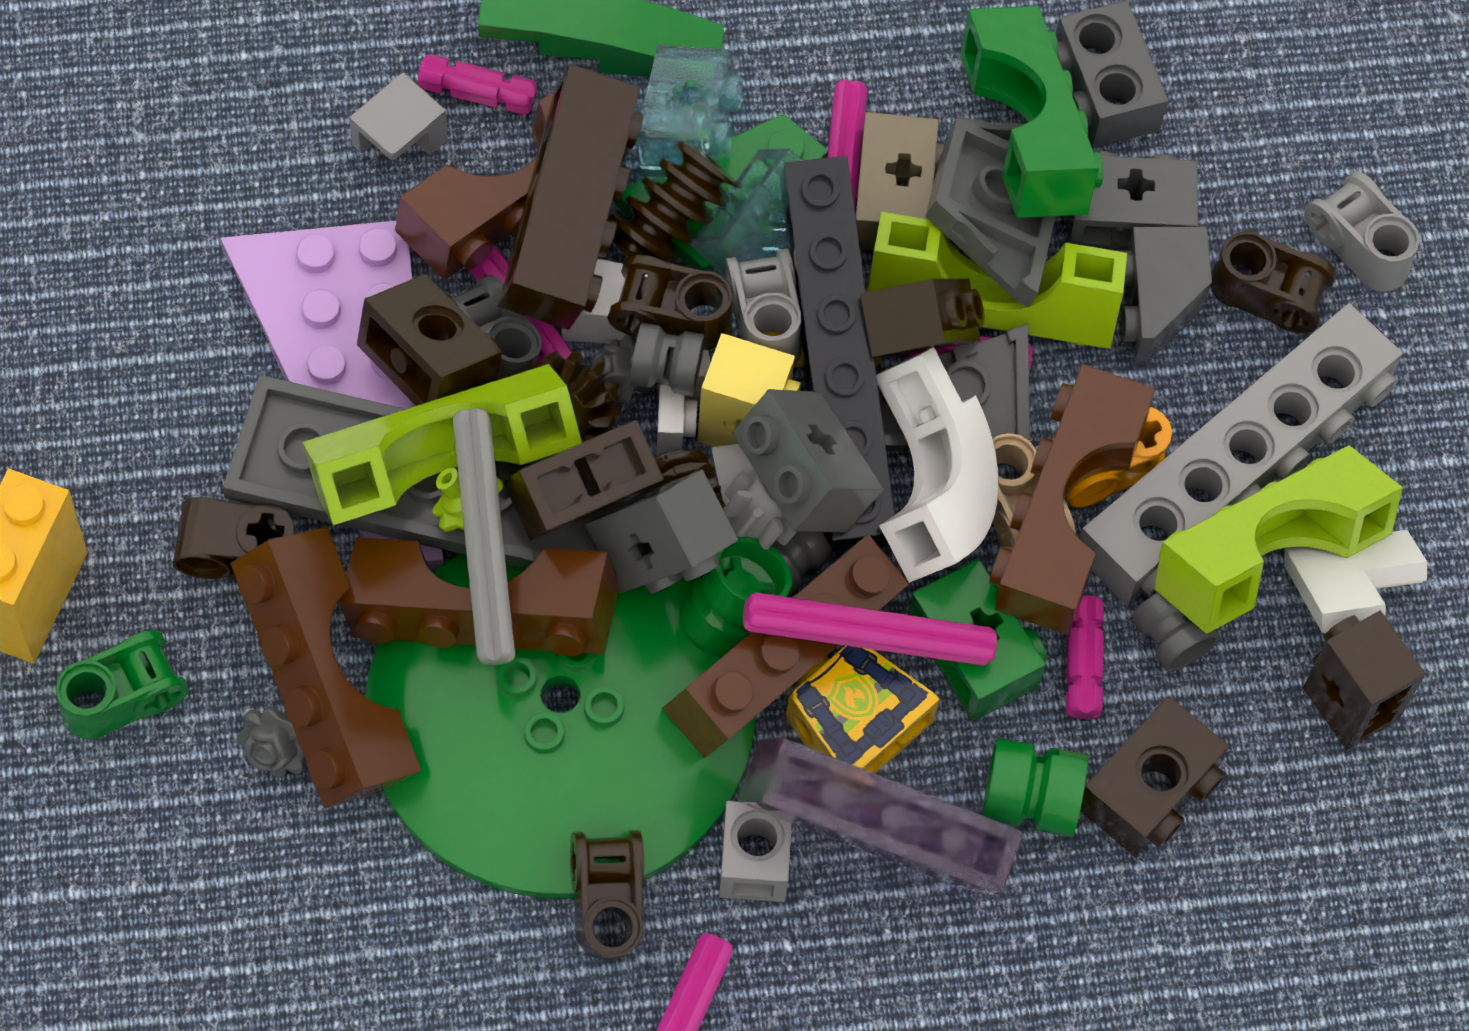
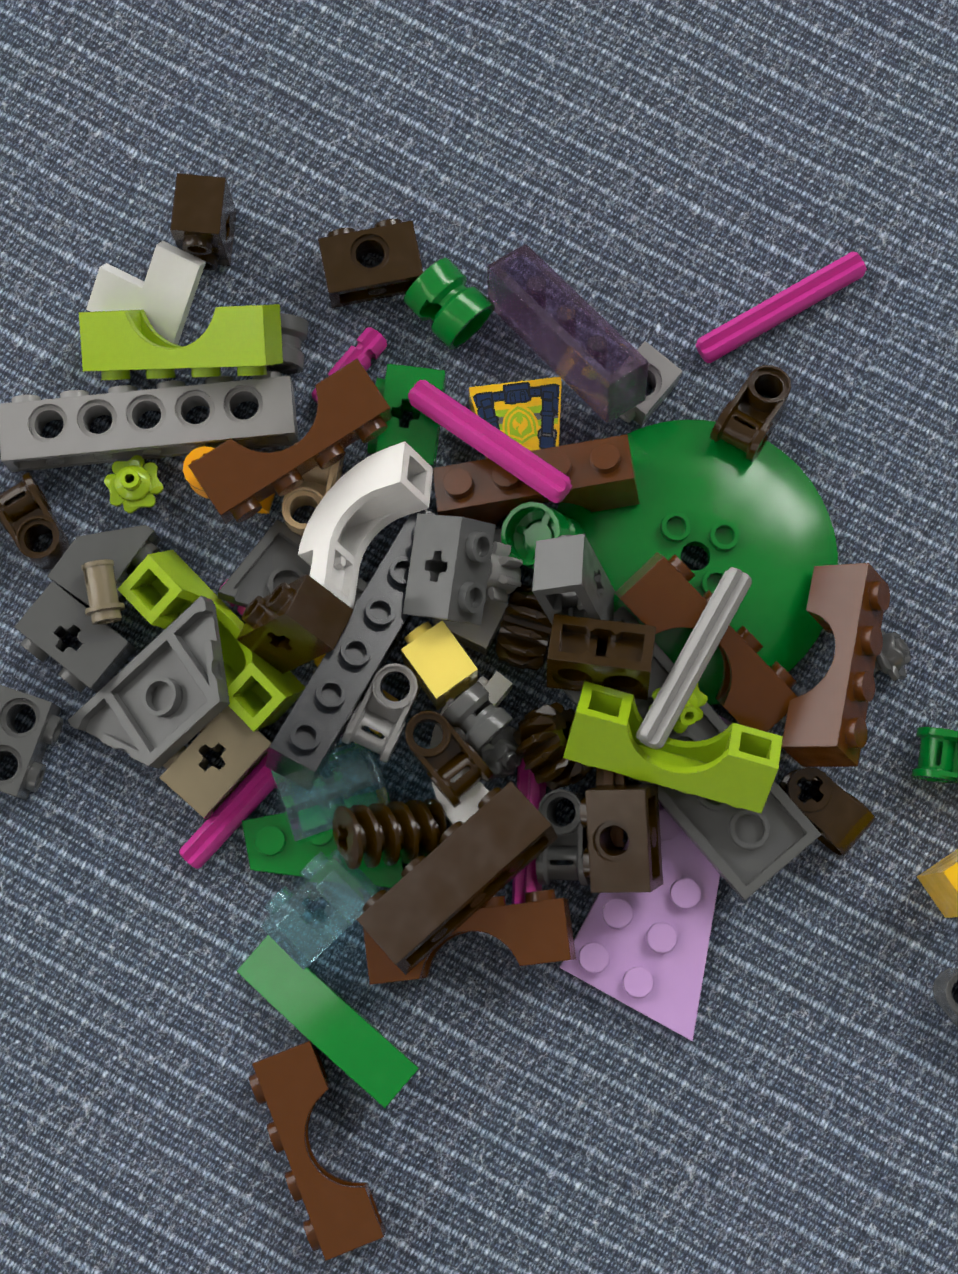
camera: 140 degrees left, 15 degrees up
(398, 119) = (519, 1040): light grey panel -> none
(477, 84) = (438, 1042): dark pink axle -> none
(1050, 158) = (71, 789): green arch -> none
(1138, 237) = (102, 592): none -> dark tan pin
(1203, 386) = (133, 484): none -> lime plant

